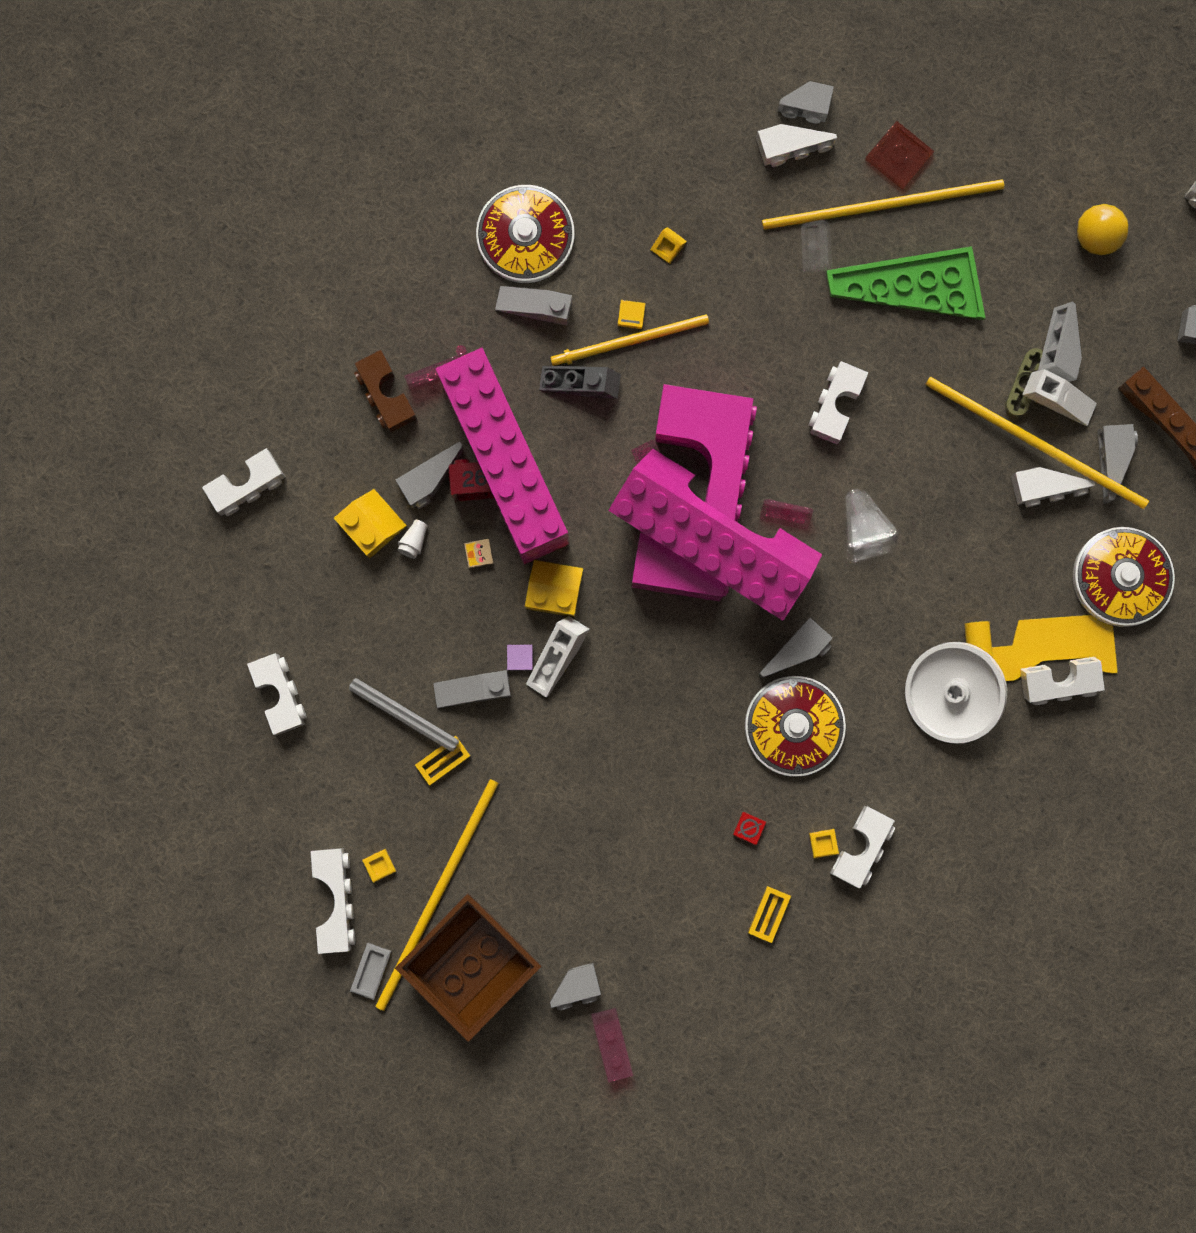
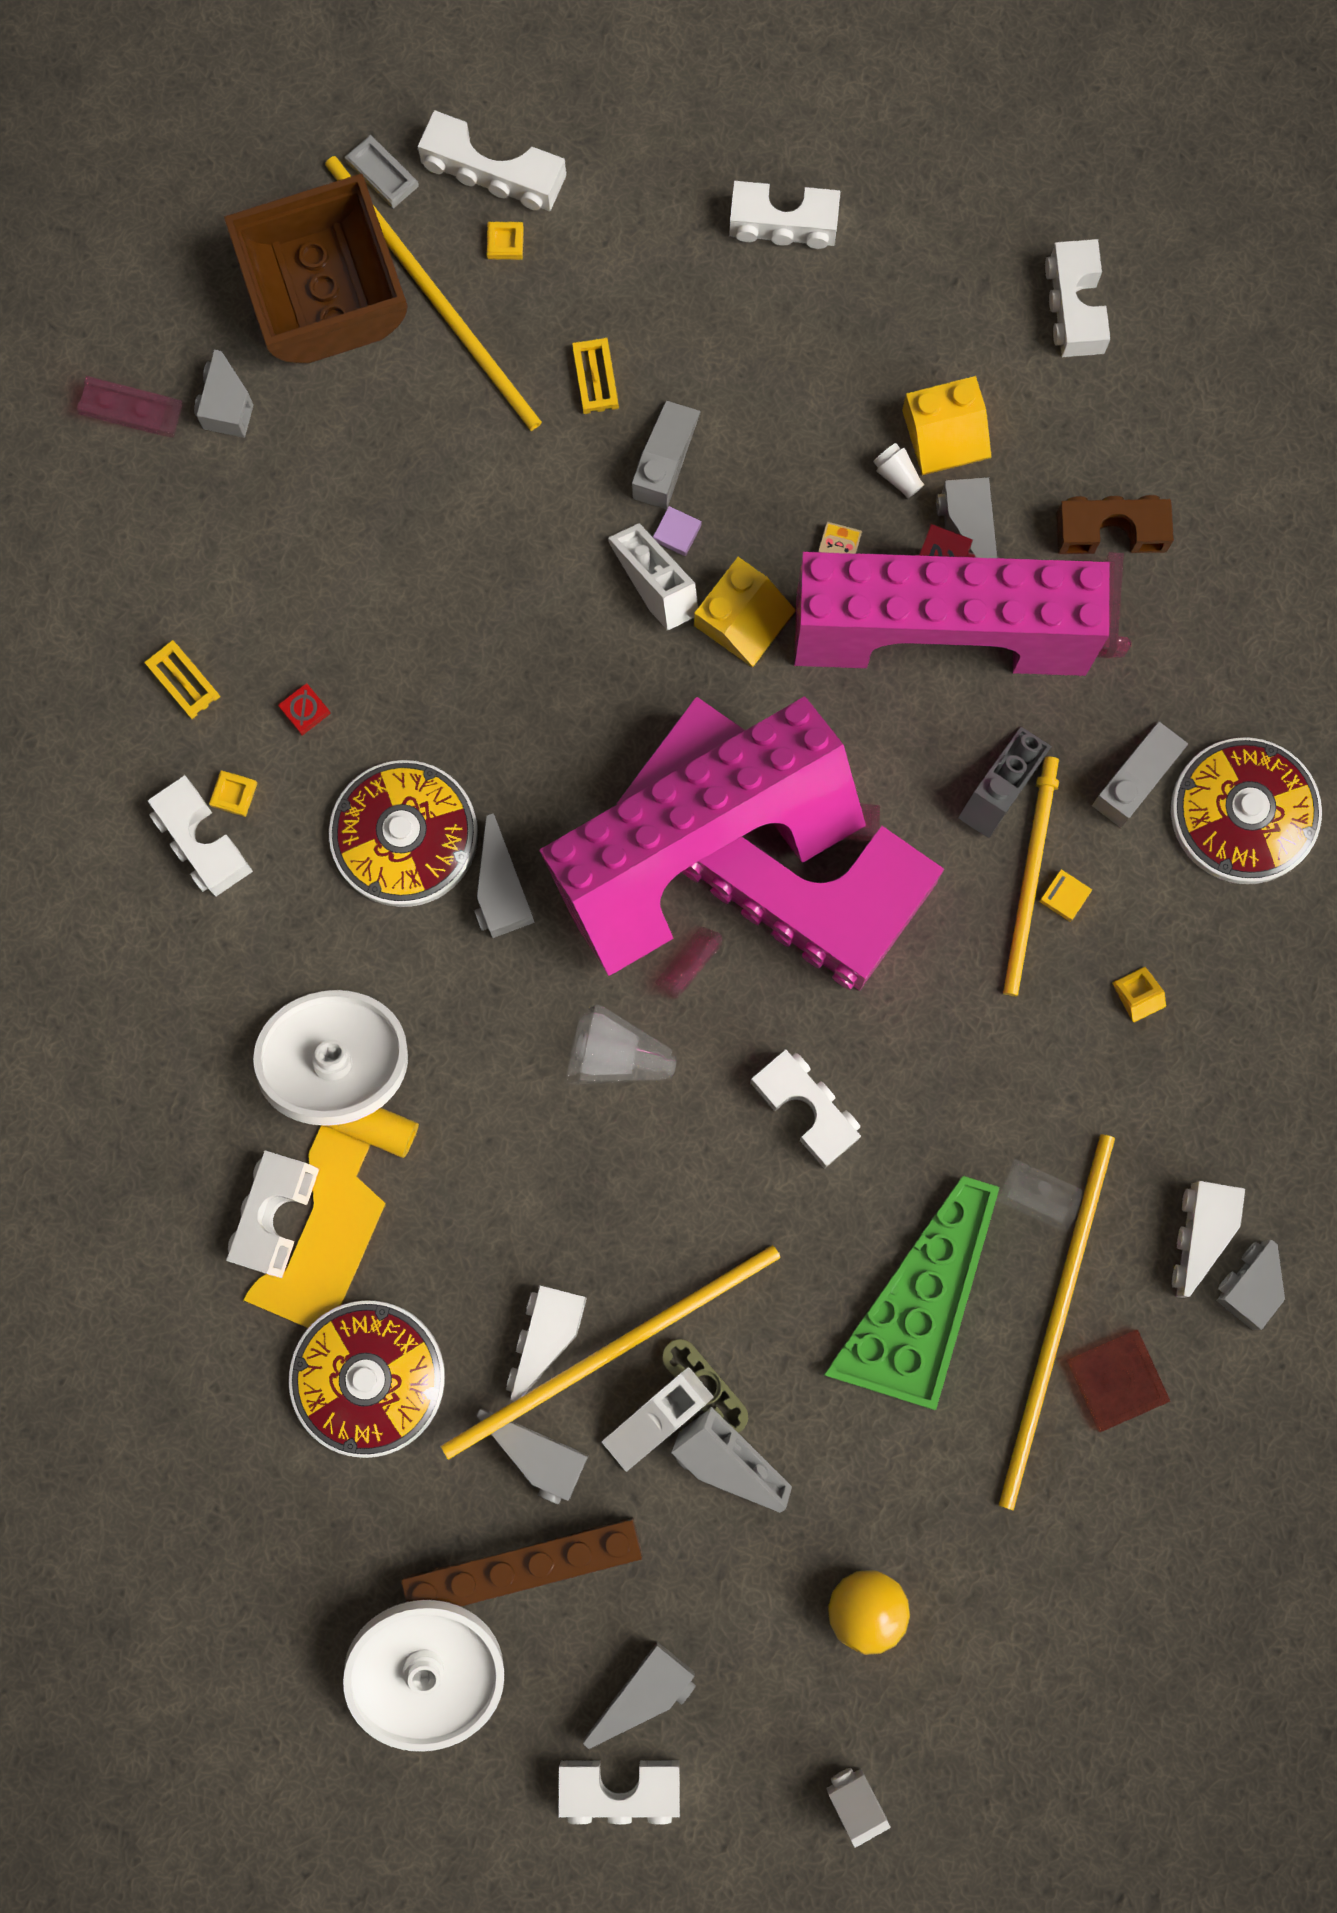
camera: 120 degrees right, 5 degrees down
(404, 715) = (677, 353): light grey axle -> none

